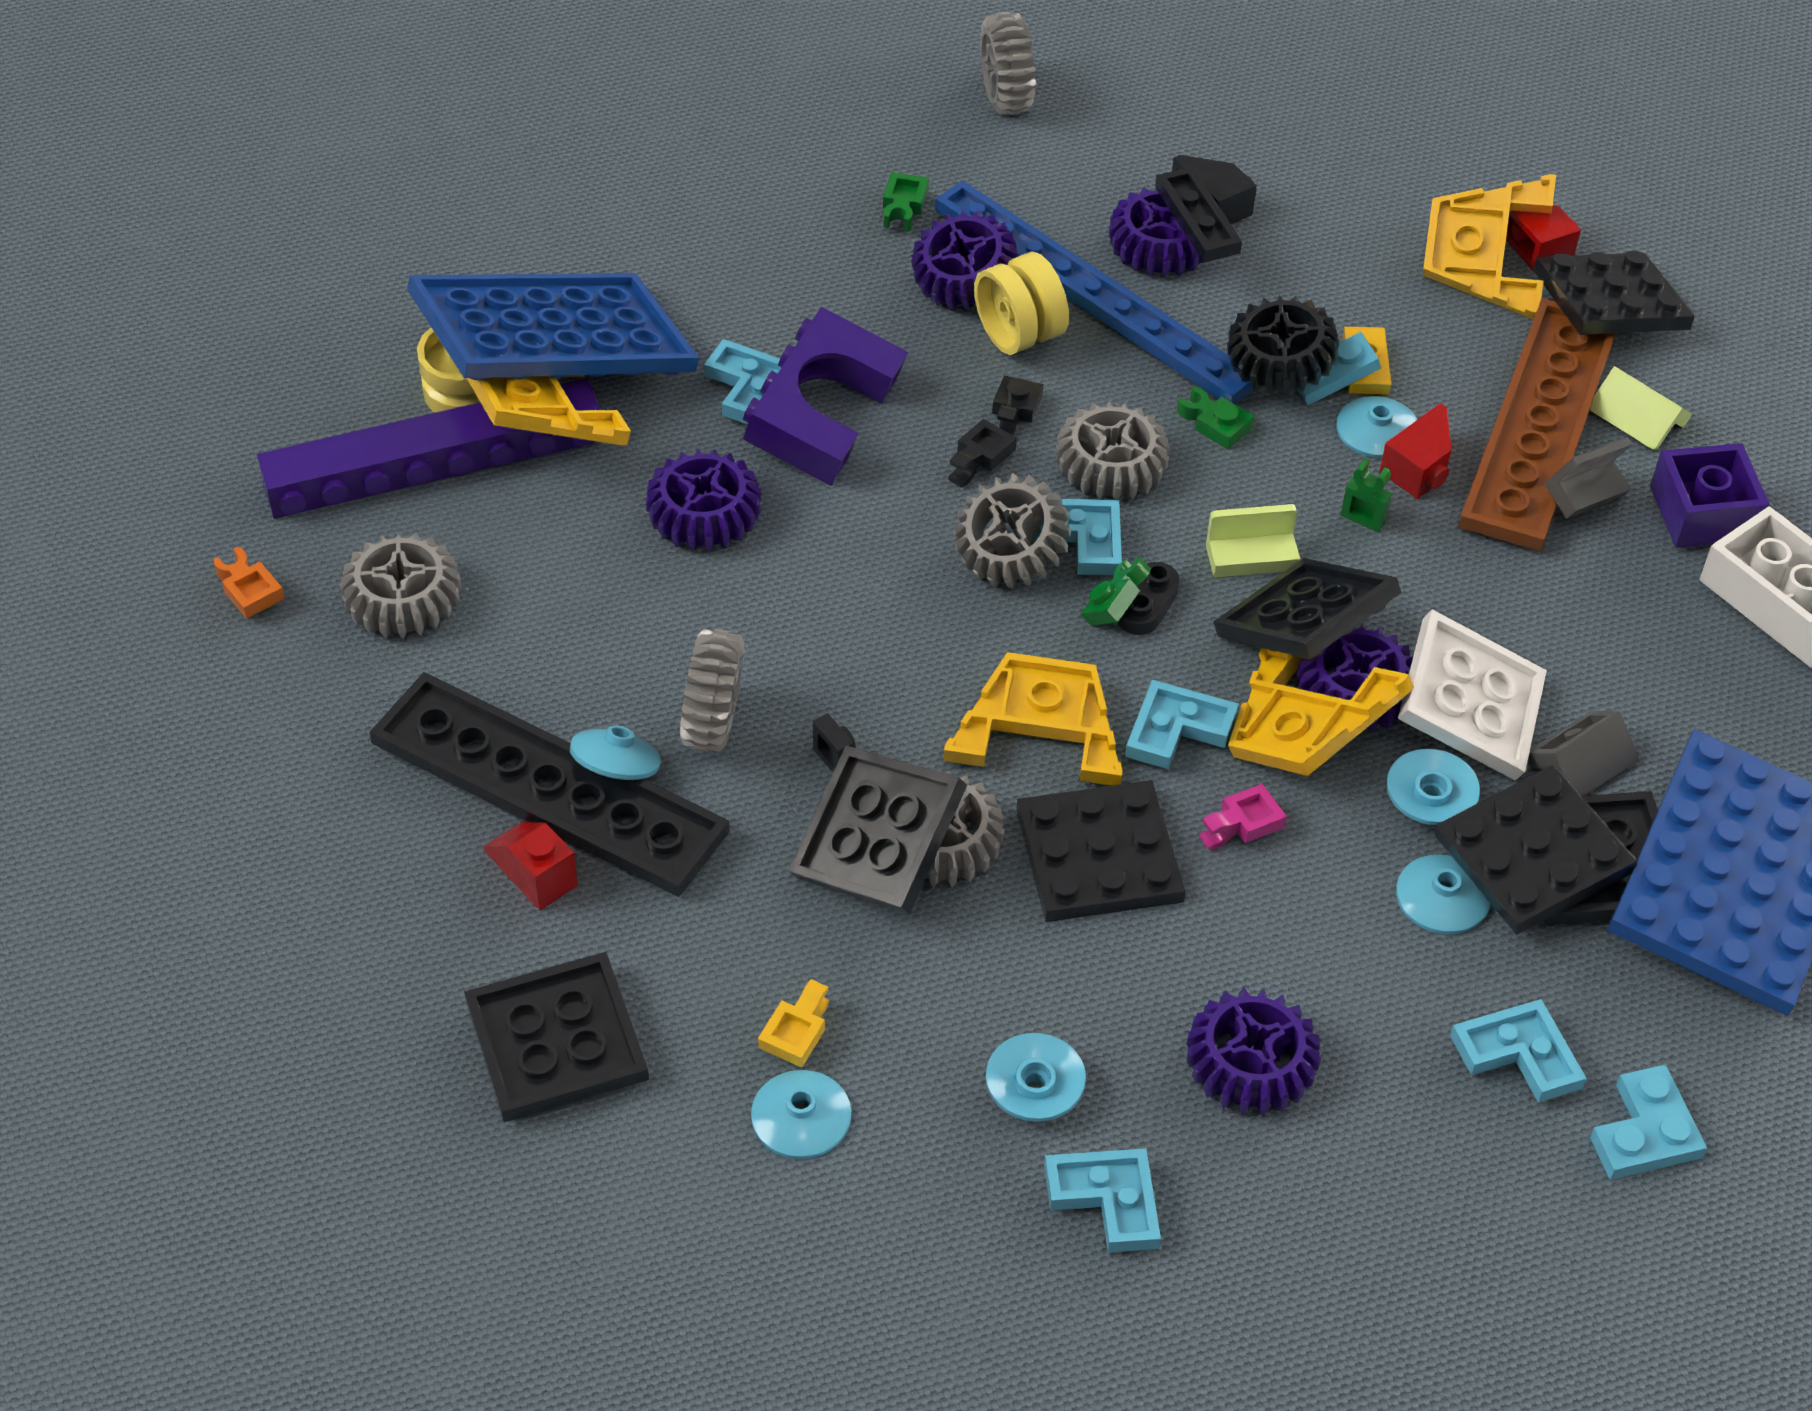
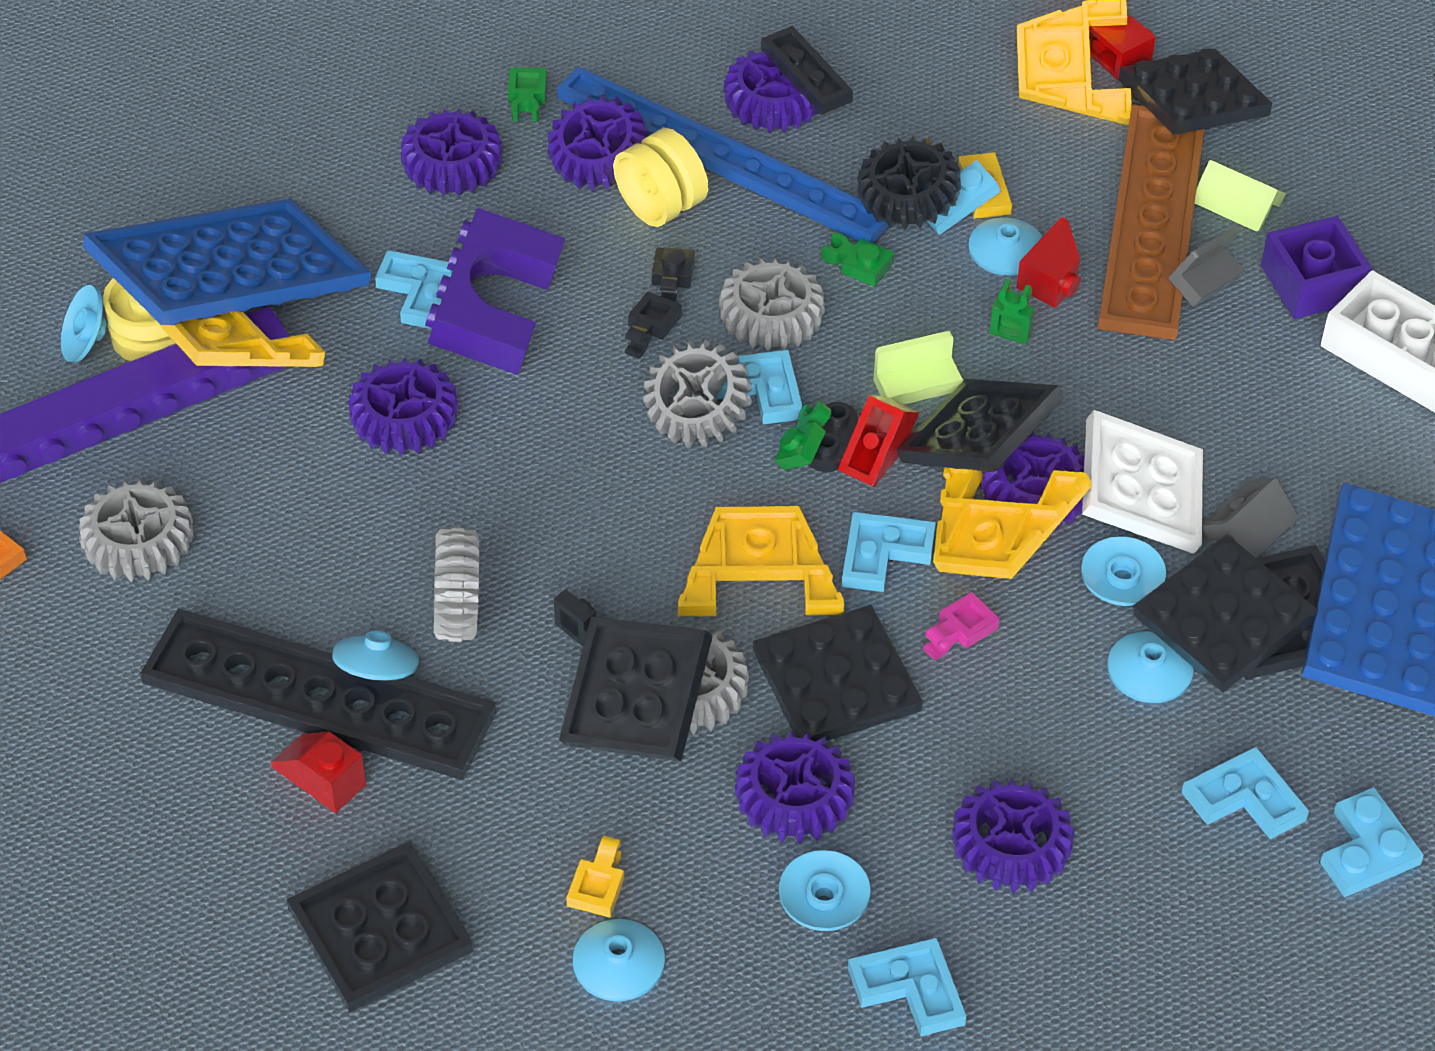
camera: 10 degrees left, 0 degrees up
(396, 369) = (83, 324): none -> medium azure dish
(812, 249) = (451, 152): none -> dark purple gear
(1030, 977) = (801, 801): none -> dark purple gear
(1193, 605) = (876, 438): none -> red slope
(1225, 182) = (823, 34): black slope -> none

